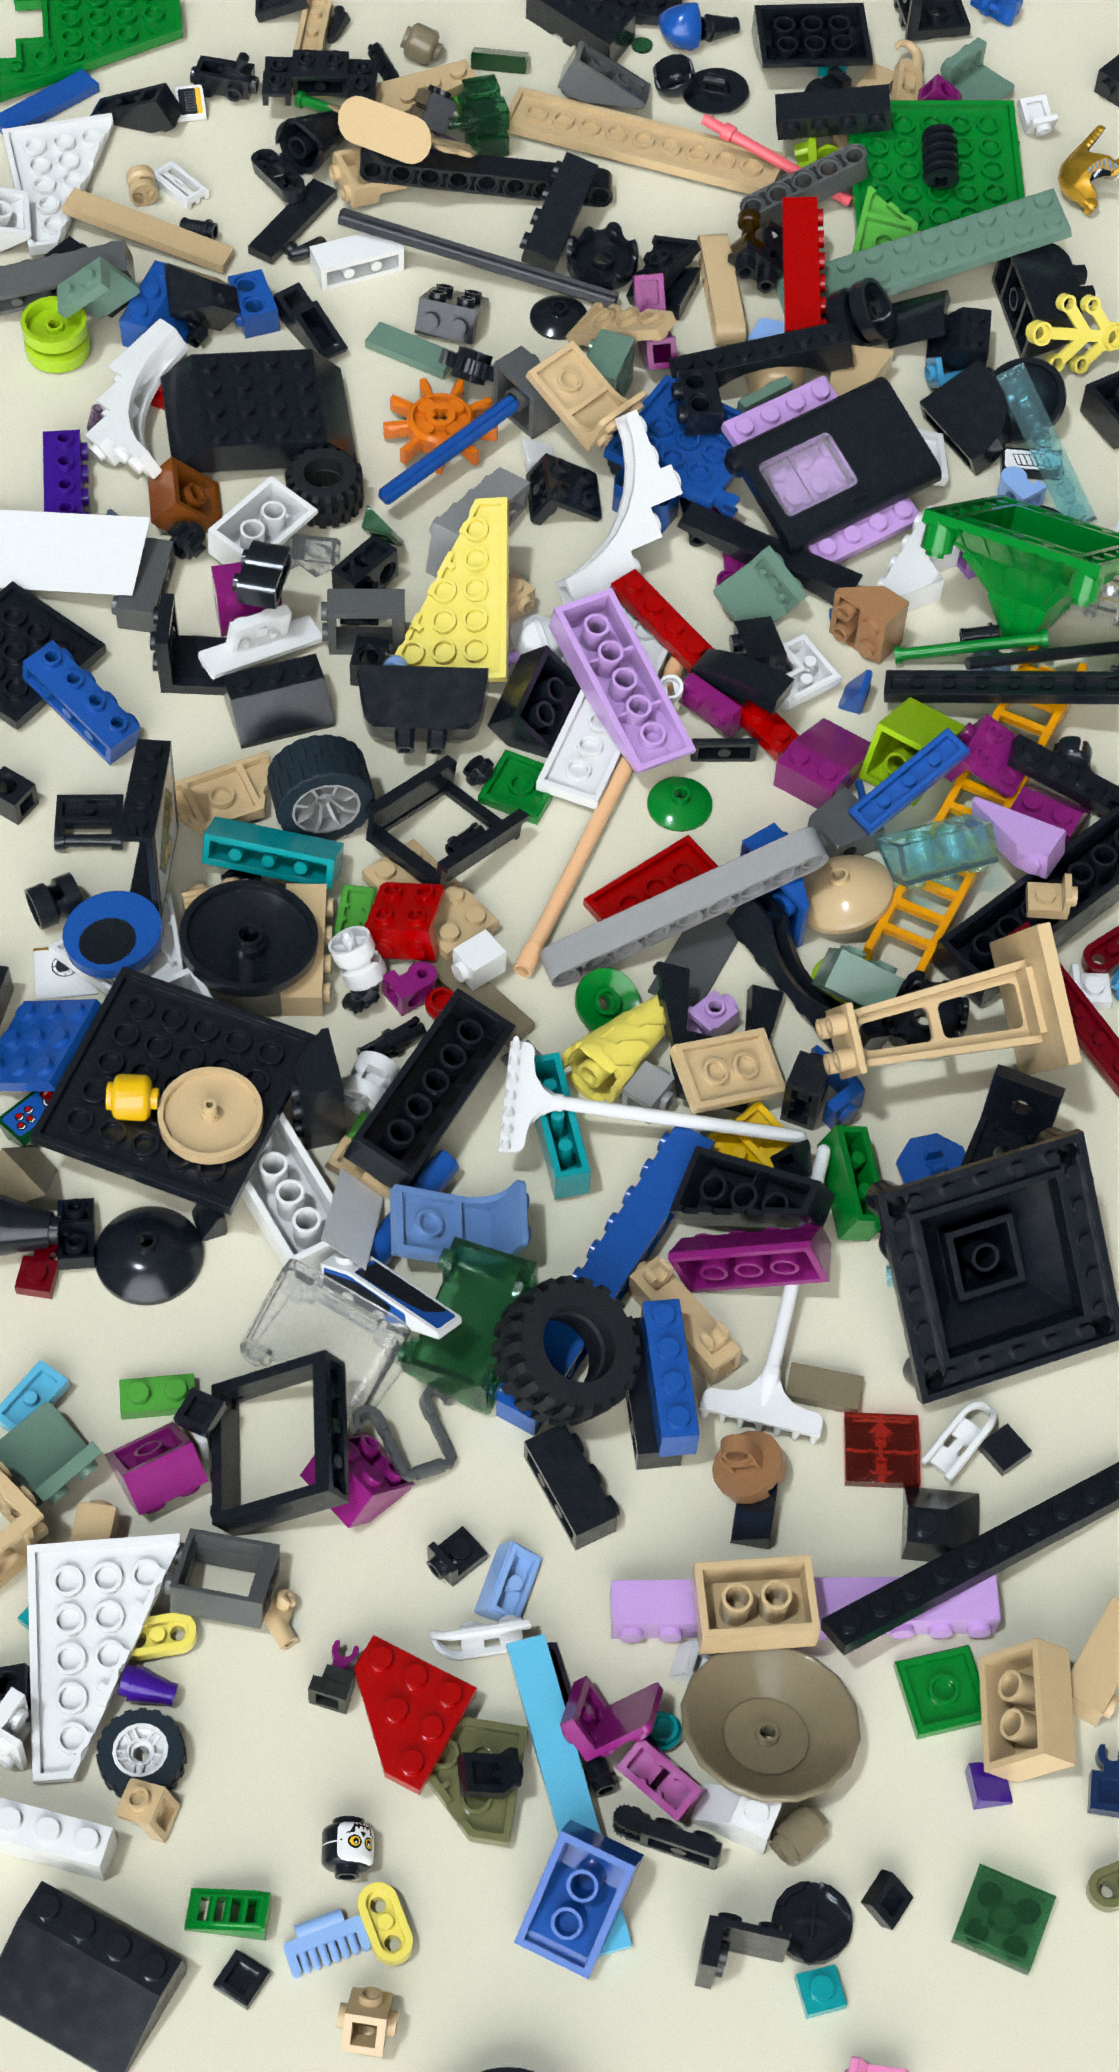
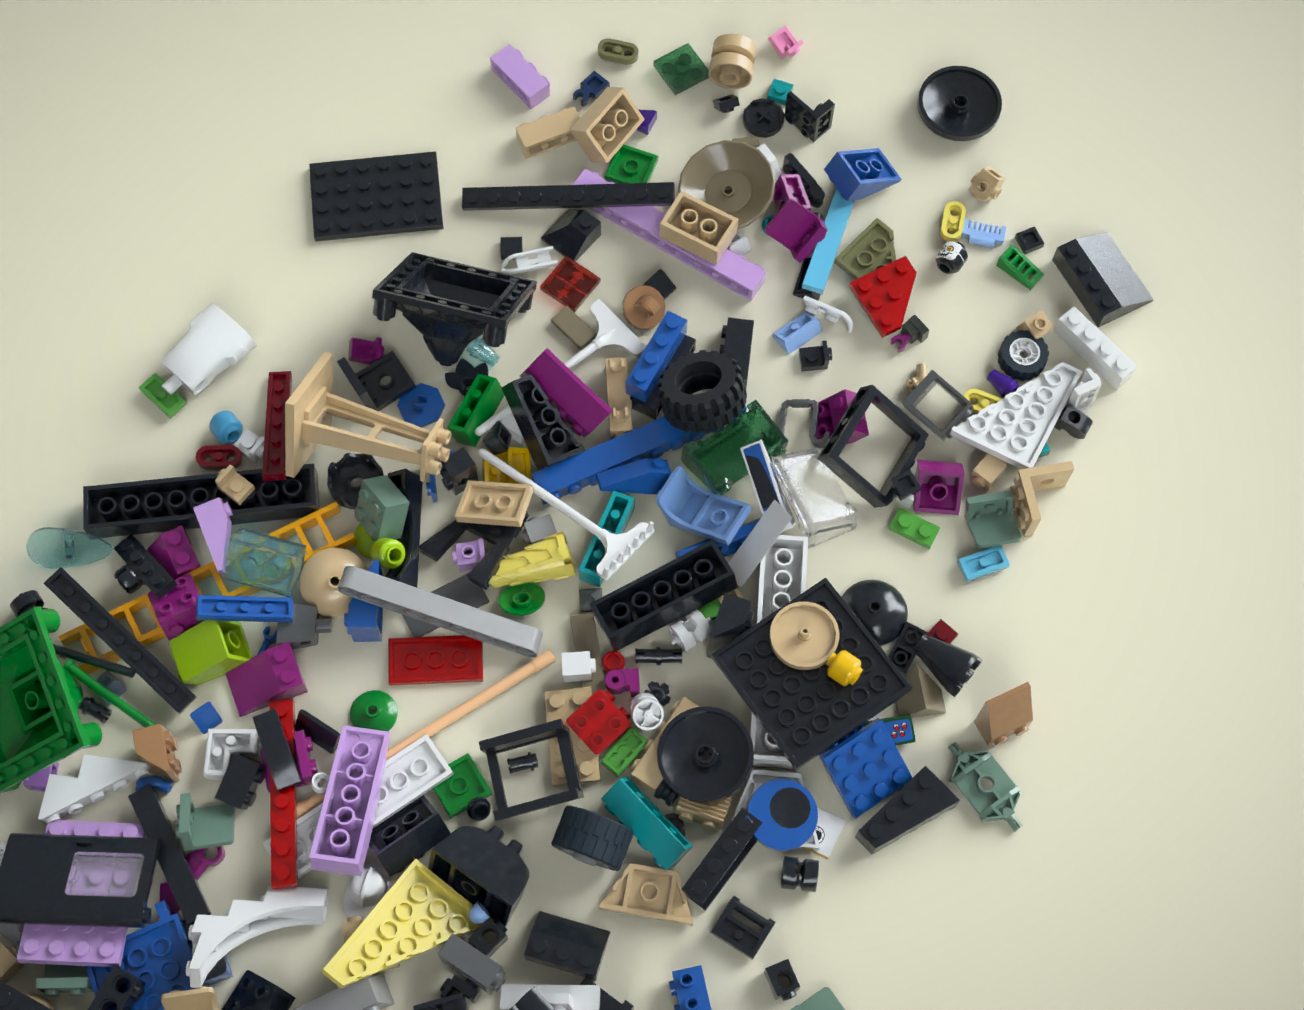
camera: 145 degrees left, 10 degrees up
(489, 1774) = (869, 242): black bracket -> none
(579, 1213) = (640, 477): none -> blue slope
(805, 942) = (388, 552): none -> lime head
(922, 1954) = (732, 61): none -> tan wheel

